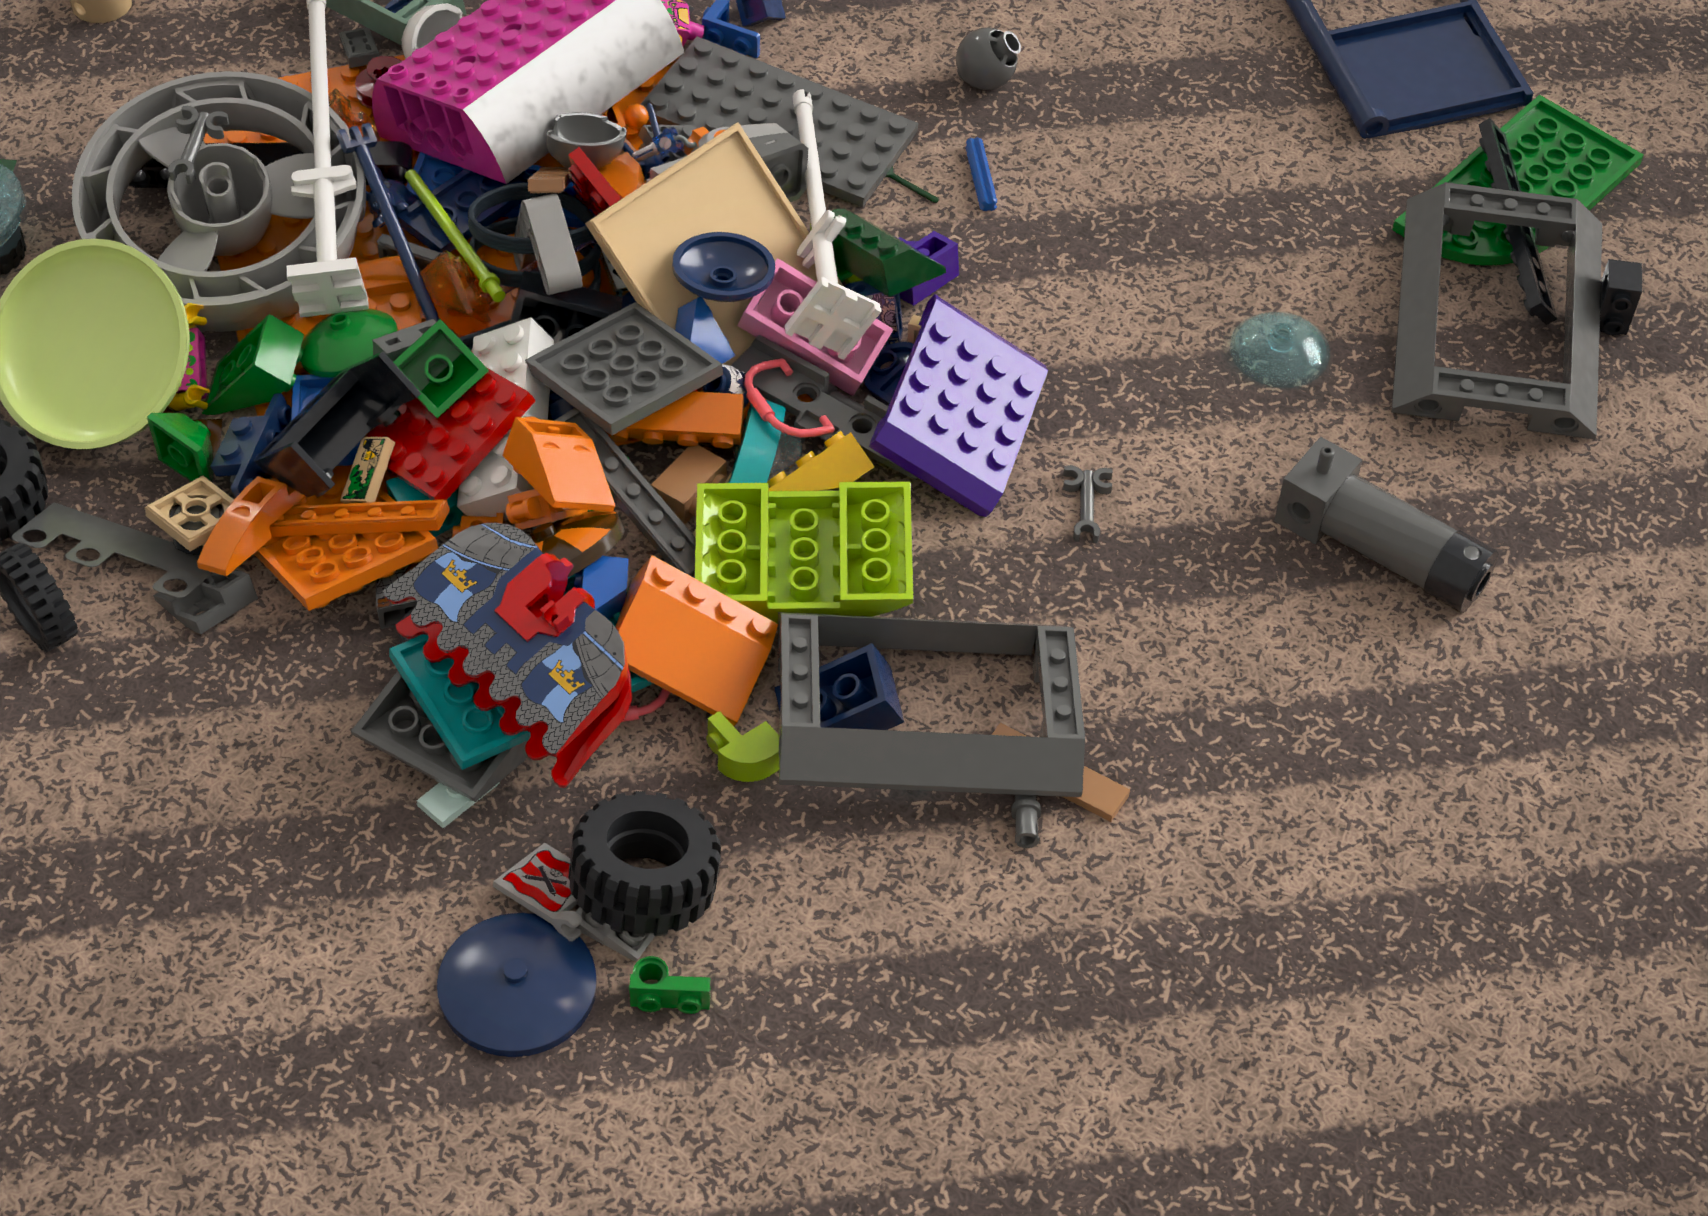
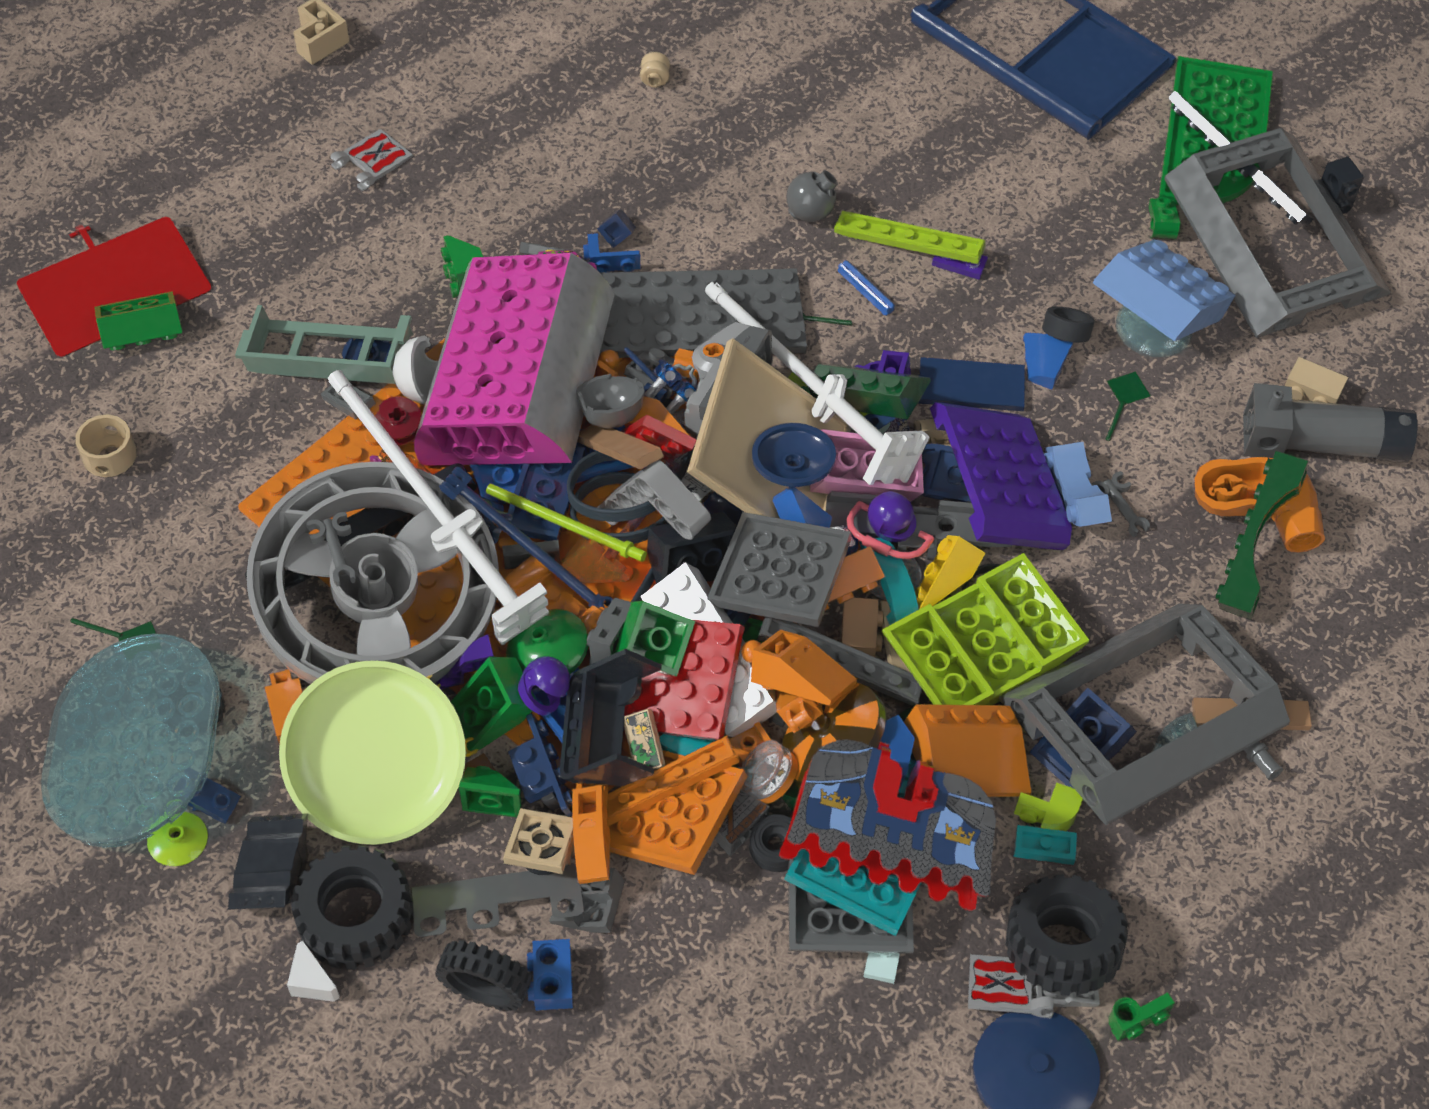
camera: 30 degrees left, 5 degrees up
(110, 639) = (556, 974): none -> blue brick
(254, 312) = (470, 661): none -> dark purple slope
(310, 358) = (551, 677): none -> dark purple helmet
(711, 780) = (1045, 844): none -> teal plate
(799, 377) = (889, 514): none -> dark purple helmet
(1020, 314) = (974, 384): none -> dark blue tile
(1039, 464) = (1071, 471): none -> medium blue brick
(1069, 144) = (910, 237): none -> lime tile
(1108, 192) = (961, 267): none -> dark purple piece
(1122, 324) = (1045, 358): none -> blue slope
(1170, 298) = (1068, 324): none -> black tyre
(1189, 397) = (1127, 390): none -> dark green piece
(1251, 555) = (1229, 490): none -> orange piece
(1255, 546) = (1282, 483): none -> dark green arch
(1305, 308) = (1164, 289): none -> medium blue slope
(1379, 247) = (1164, 218): none -> green plate
(1415, 481) = (1315, 382): none -> tan brick

